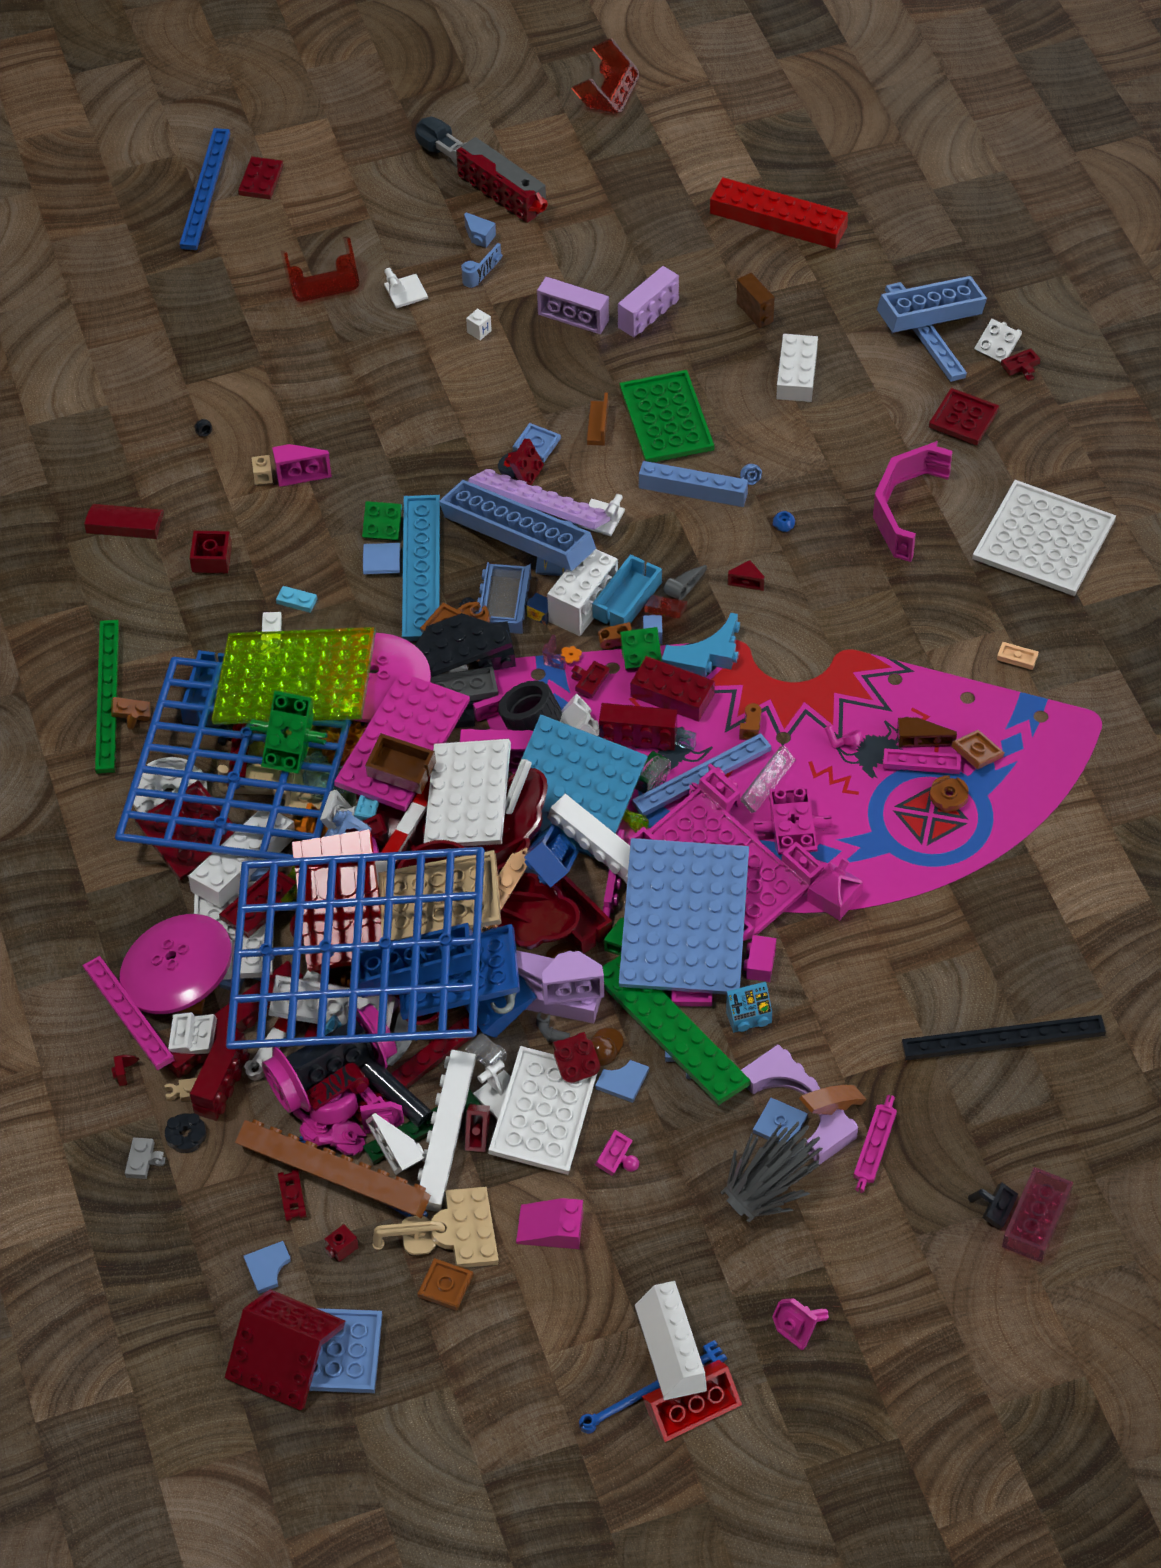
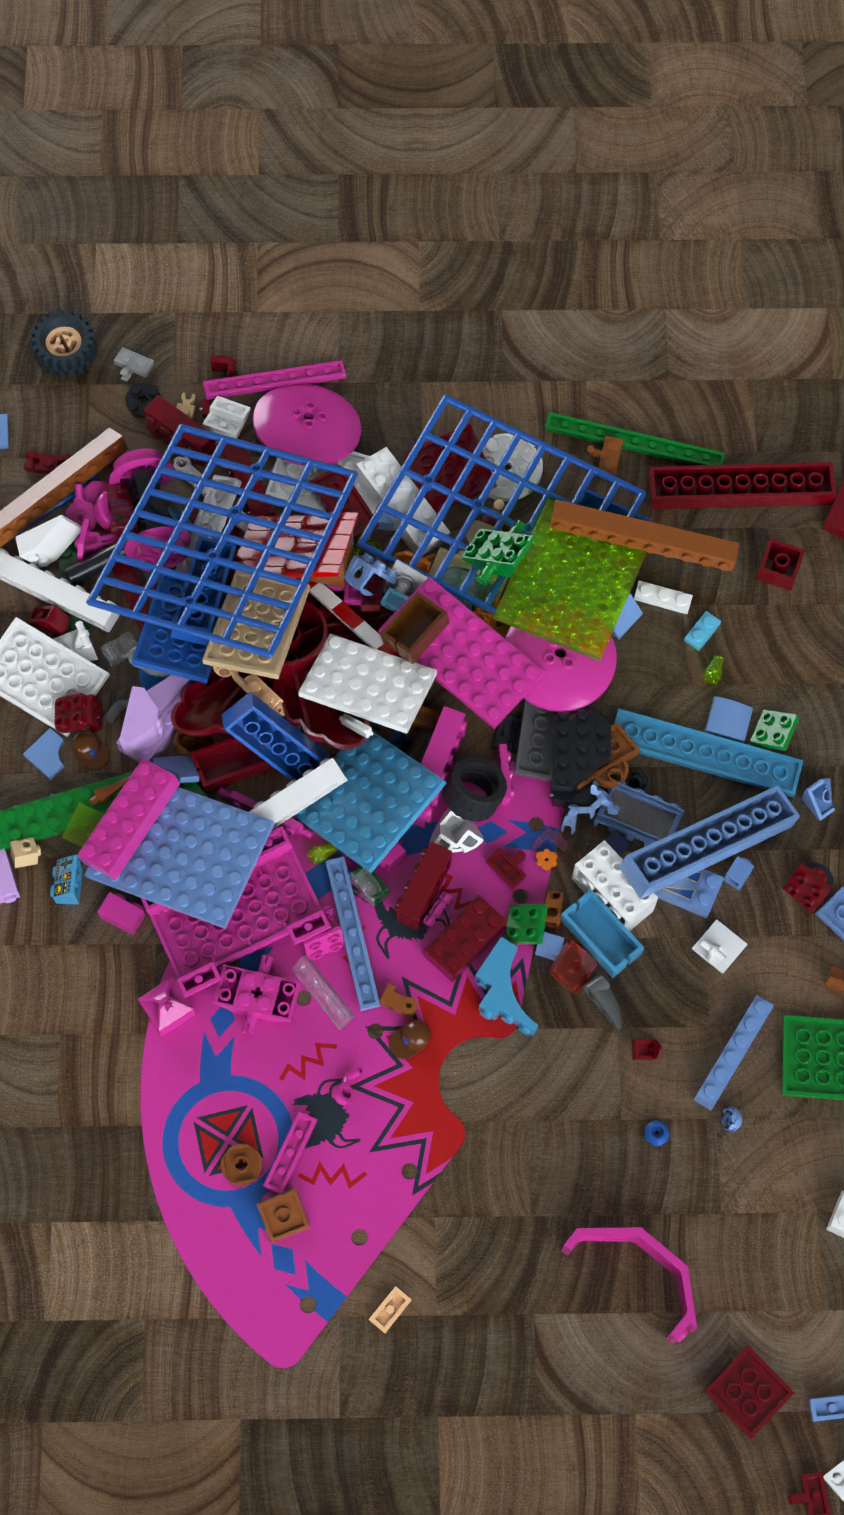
camera: 105 degrees right, 15 degrees up
(132, 1211) = (77, 337): none -> black wheel
(134, 599) = (741, 485): none -> dark red brick
(230, 634) = (644, 535): none -> dark orange brick
(336, 579) = (713, 672): none -> clear neon green cone
(433, 481) = (819, 798): none -> medium blue slope
(527, 644) = (602, 799): none -> medium blue piece
(540, 499) = (754, 886): lavender plate -> none
(600, 949) = (180, 766): none -> medium blue tile
(651, 1001) = (103, 794): none -> dark orange piece
(674, 958) = (128, 819): none -> dark pink brick
(685, 739) = (399, 930): clear light blue plate -> none
(691, 1006) = (82, 825): none -> clear neon green plate
(715, 541) = (646, 1049): none -> dark red plate
(736, 1054) = (24, 852): none -> tan brick
(746, 576) = (590, 1066): dark red slope -> none
(778, 708) = (410, 1039): none -> reddish brown cap
(922, 733) = (325, 1163): reddish brown slope -> none
(1044, 537) = (543, 1410): white plate -> none

